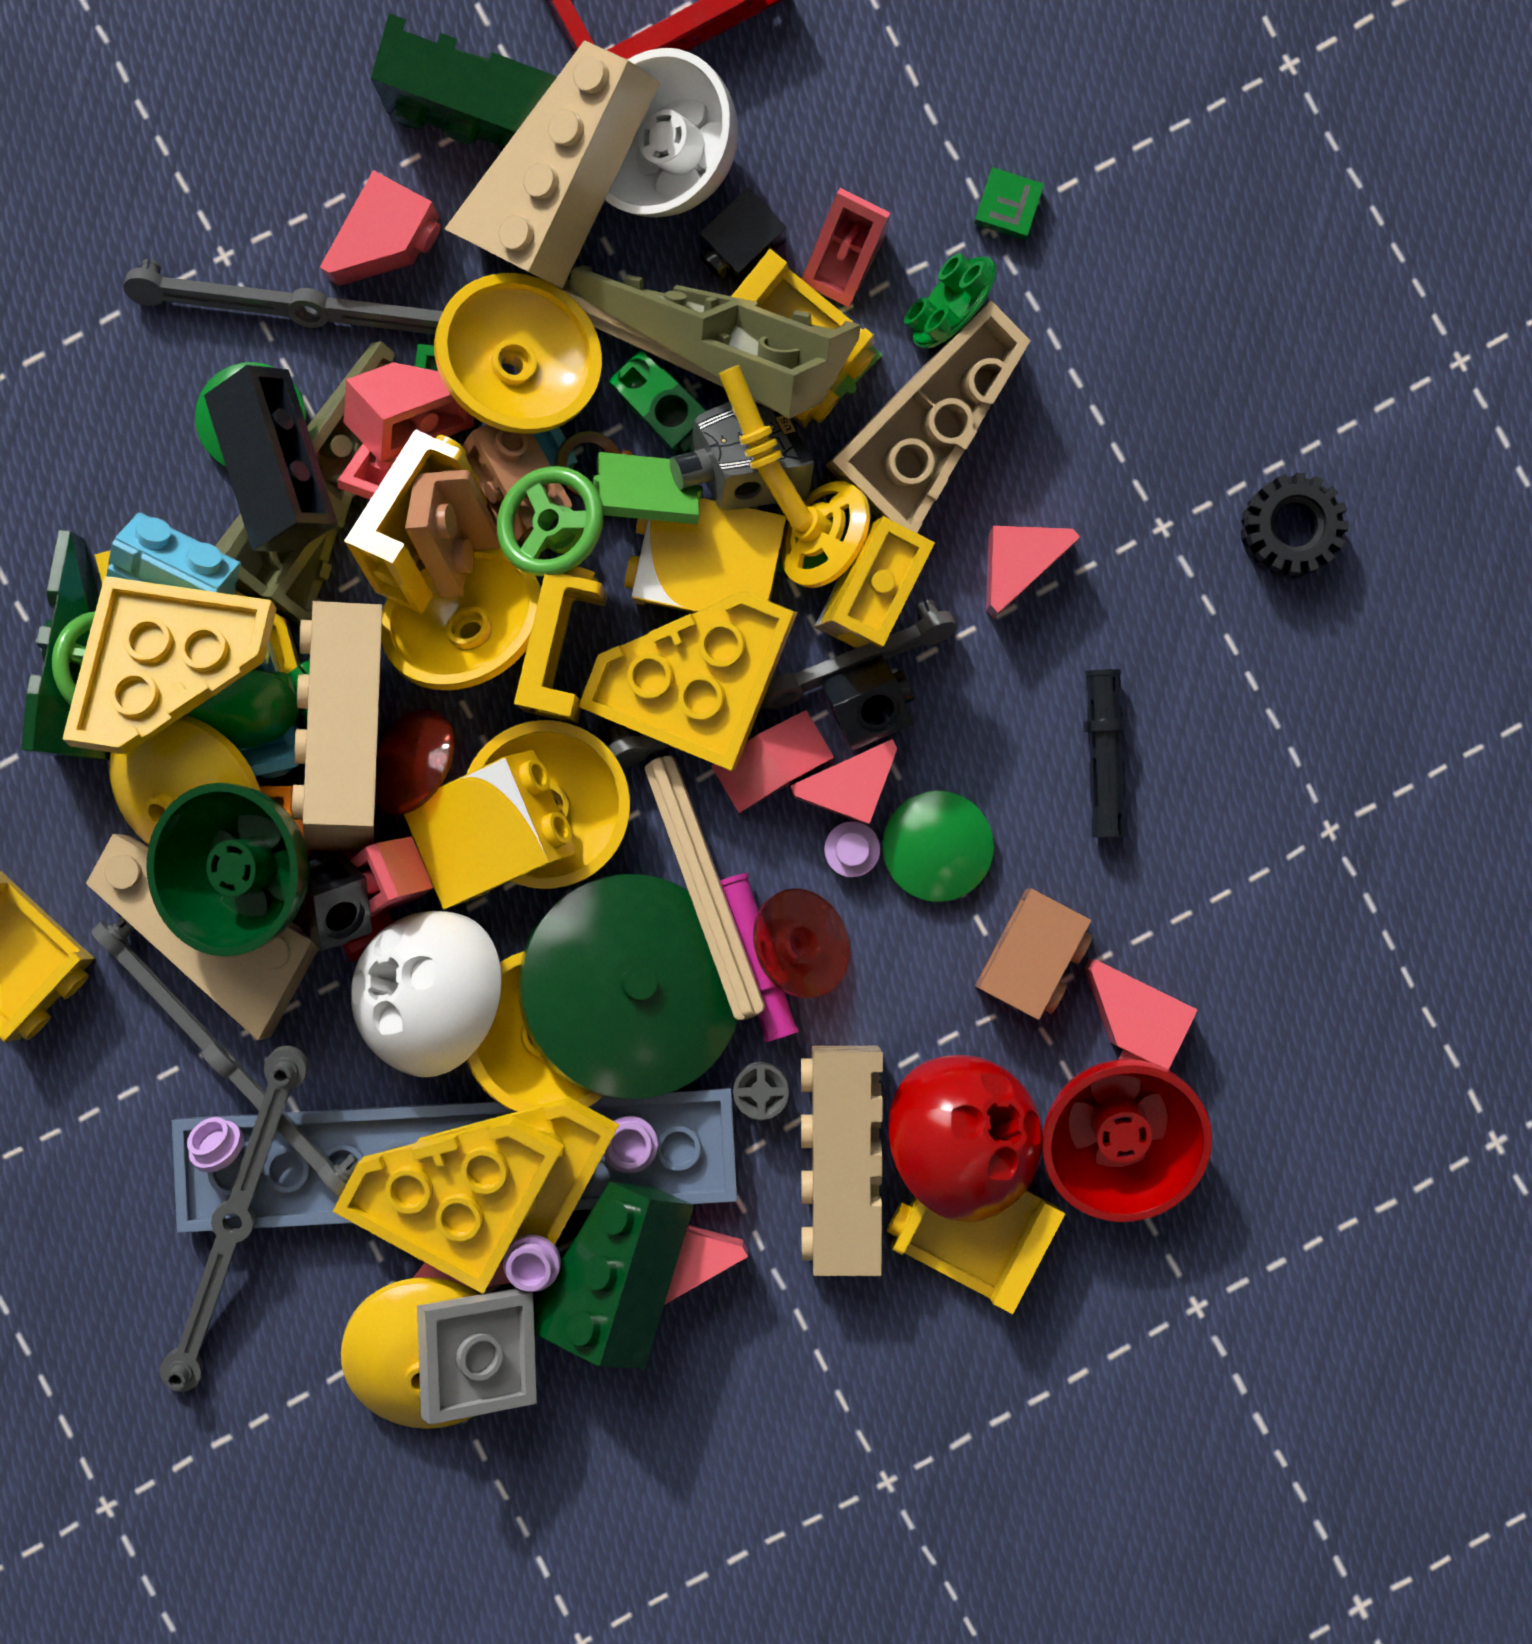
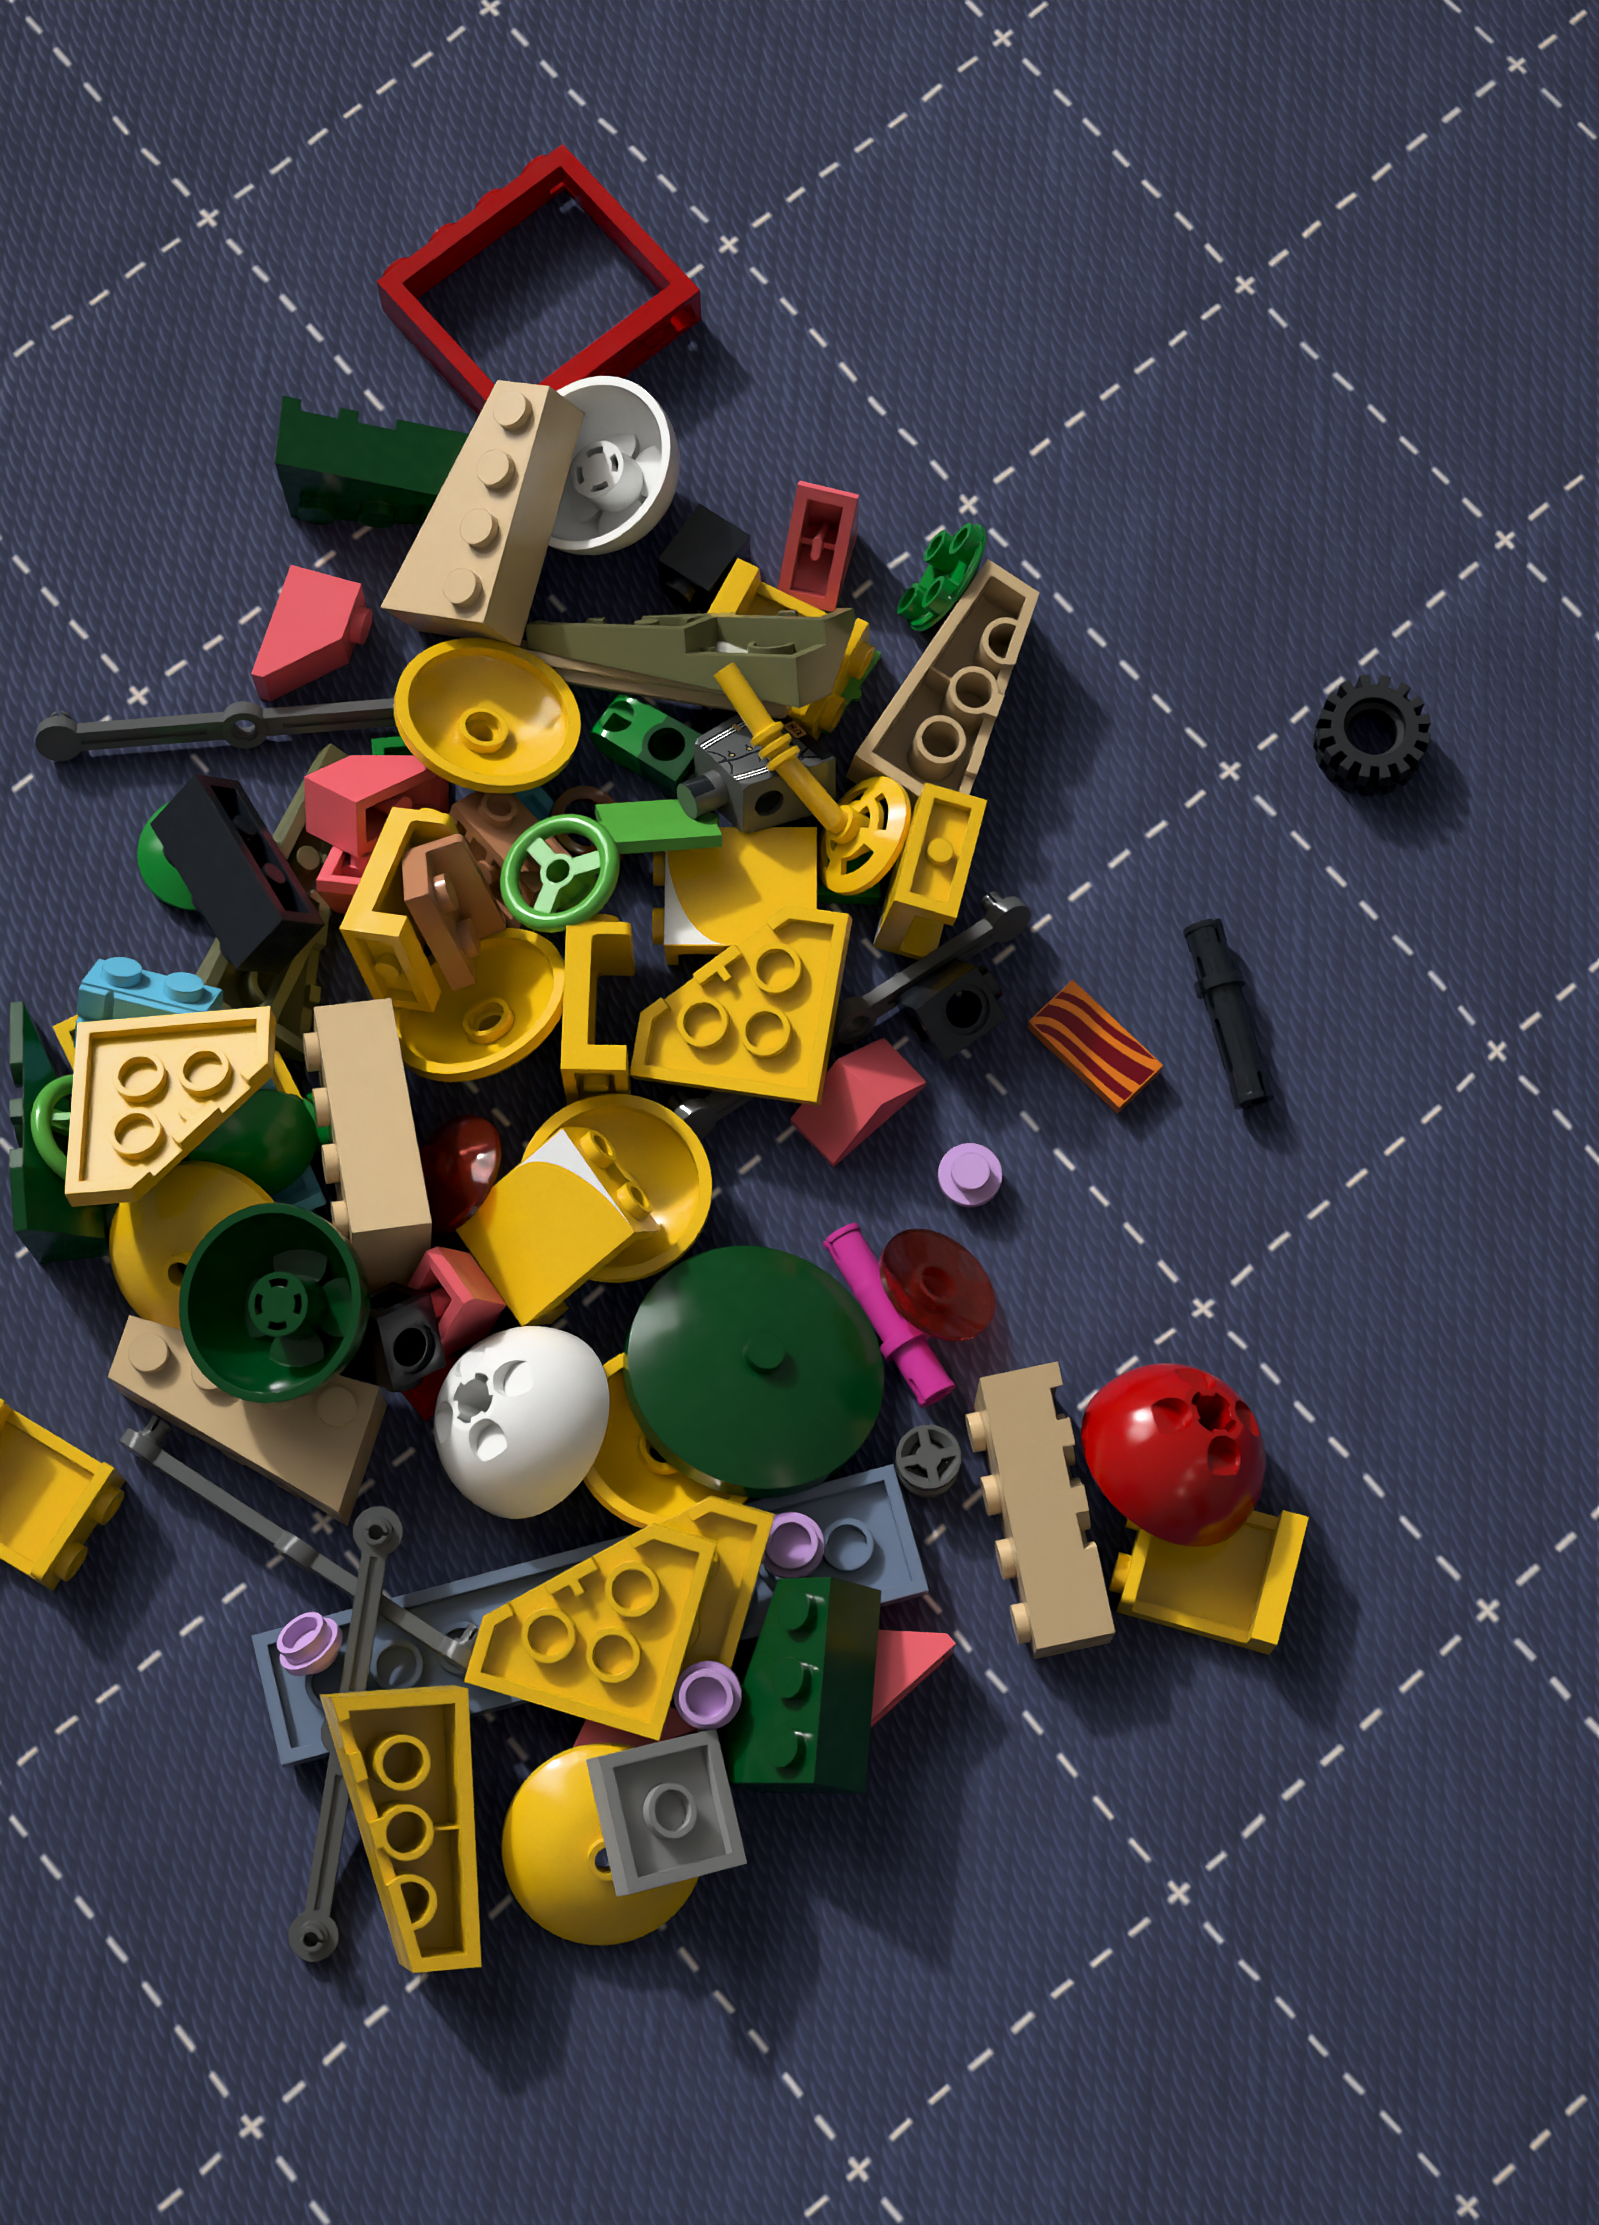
camera: 15 degrees left, 15 degrees down
(274, 1288) = (414, 1806): none -> yellow wedge
(705, 888) = (814, 1247): tan axle -> none
(850, 786) = (949, 1105): coral slope -> none
(938, 846) = (1065, 1153): green dish -> none
(985, 756) = (1095, 1046): none -> tile
(1008, 203) = (982, 475): green tile -> none
(1019, 558) = (1083, 825): coral slope -> none
(1035, 954) = (1202, 1243): nougat brick -> none
(1132, 1164) = (1388, 1430): red piece -> none
(1137, 1016) = (1334, 1287): coral slope -> none

